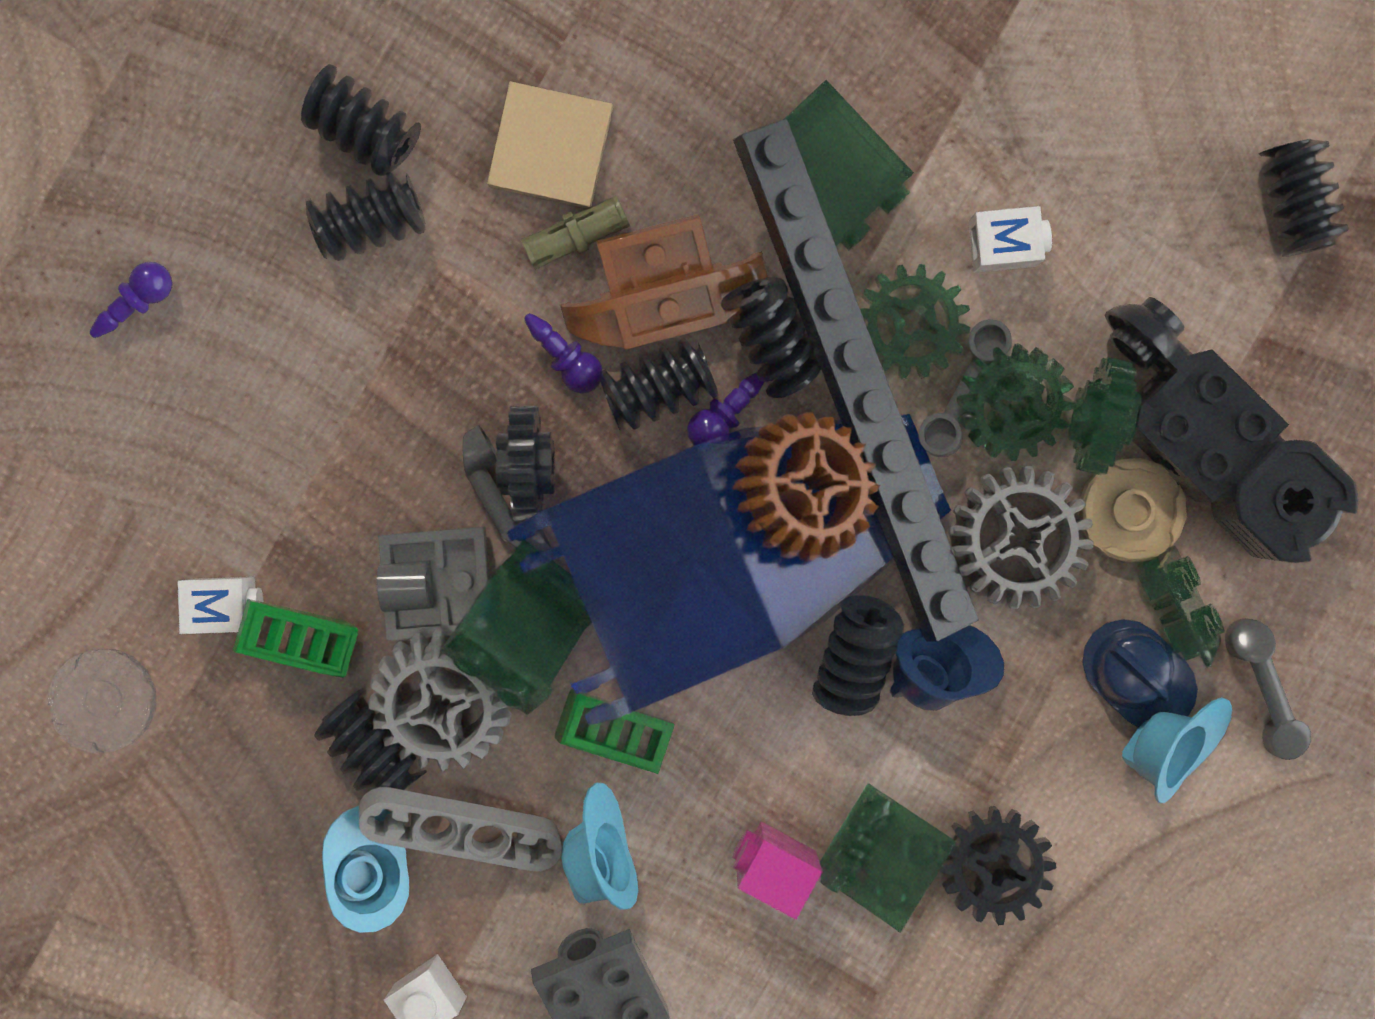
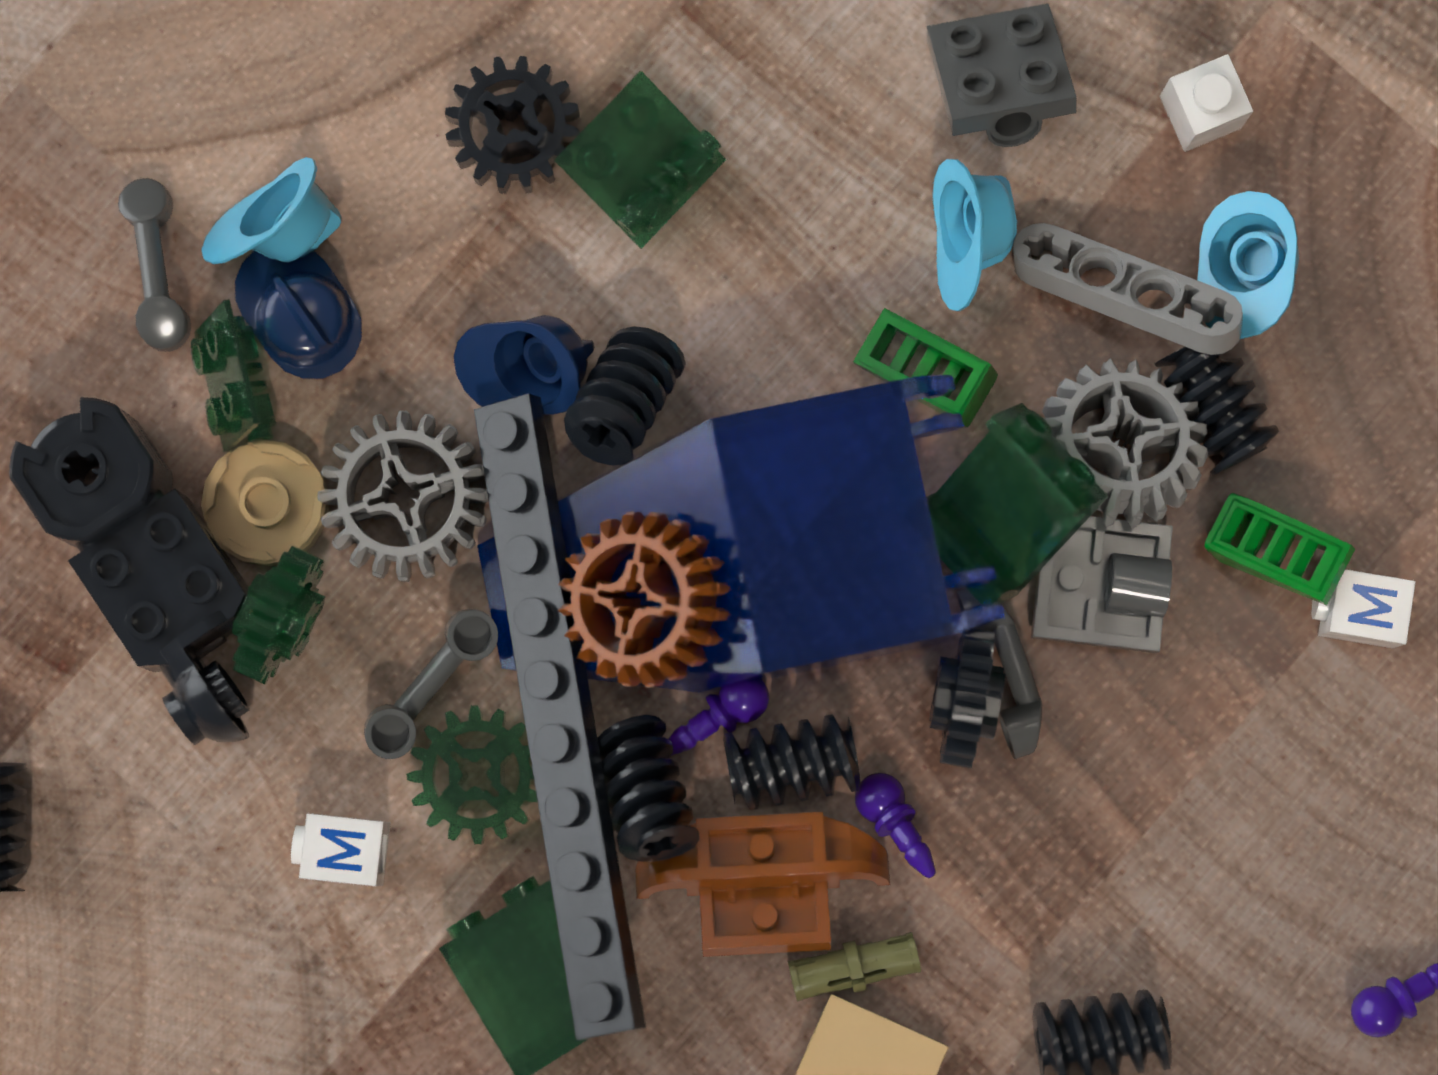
camera: 165 degrees left, 5 degrees down
(776, 869) = (769, 170): dark pink brick -> none
(1015, 379) = (378, 678): clear green gear -> none

